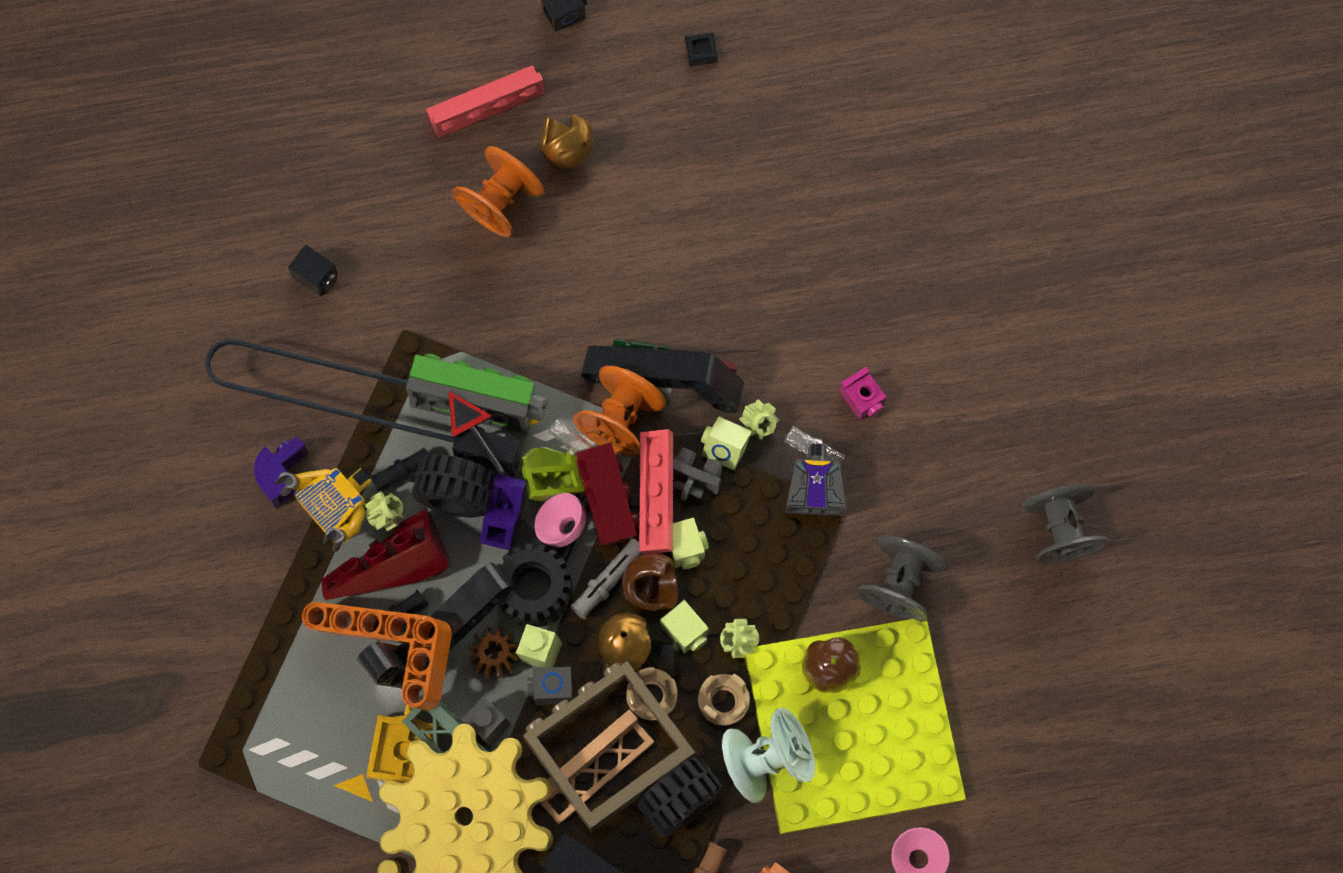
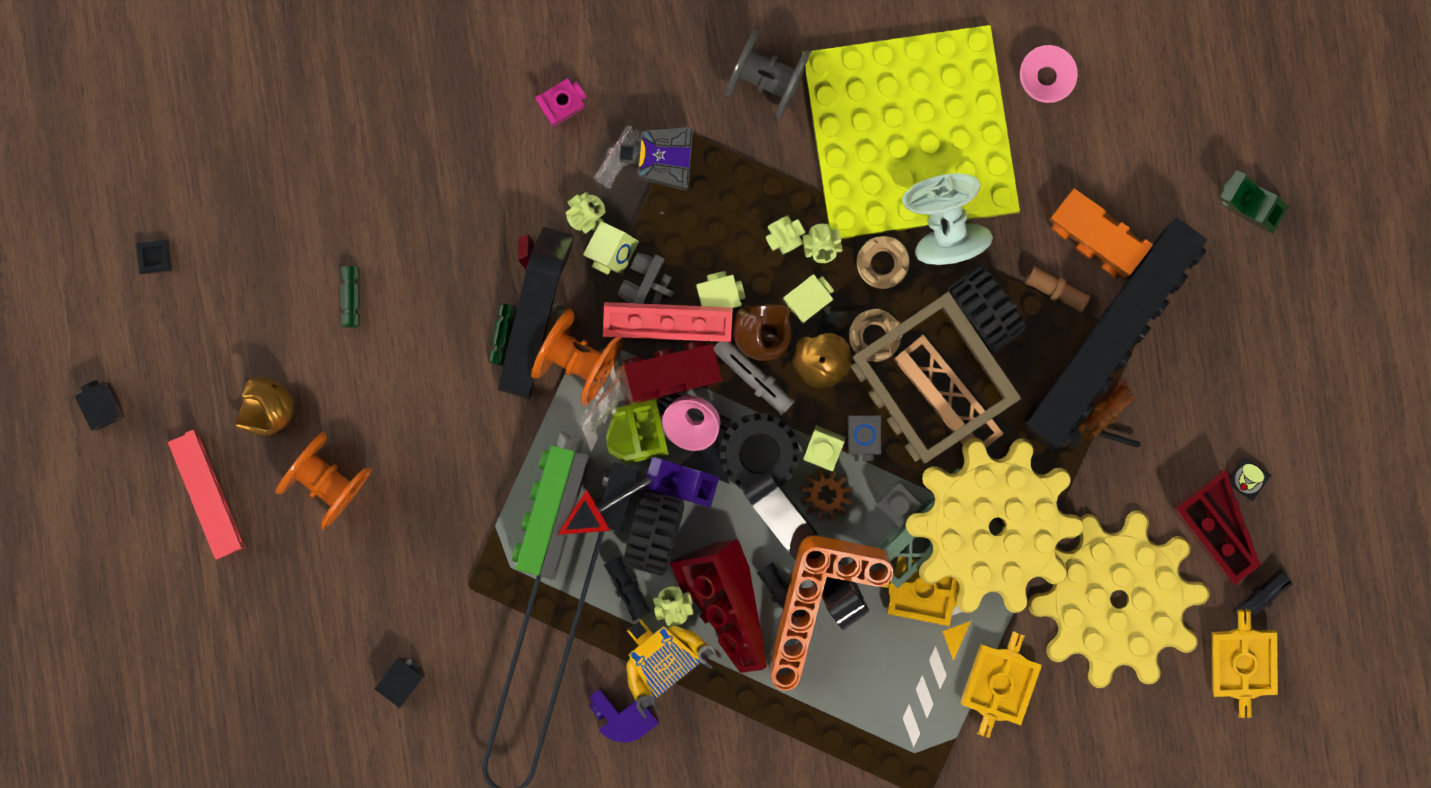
camera: 85 degrees left, 15 degrees up
(308, 831) = (1000, 684): none -> yellow plate
(671, 216) = (350, 296): none -> dark green axle
(746, 602) = (785, 235): none -> yellowish green gear
(827, 676) = (856, 163): reddish brown piece -> none

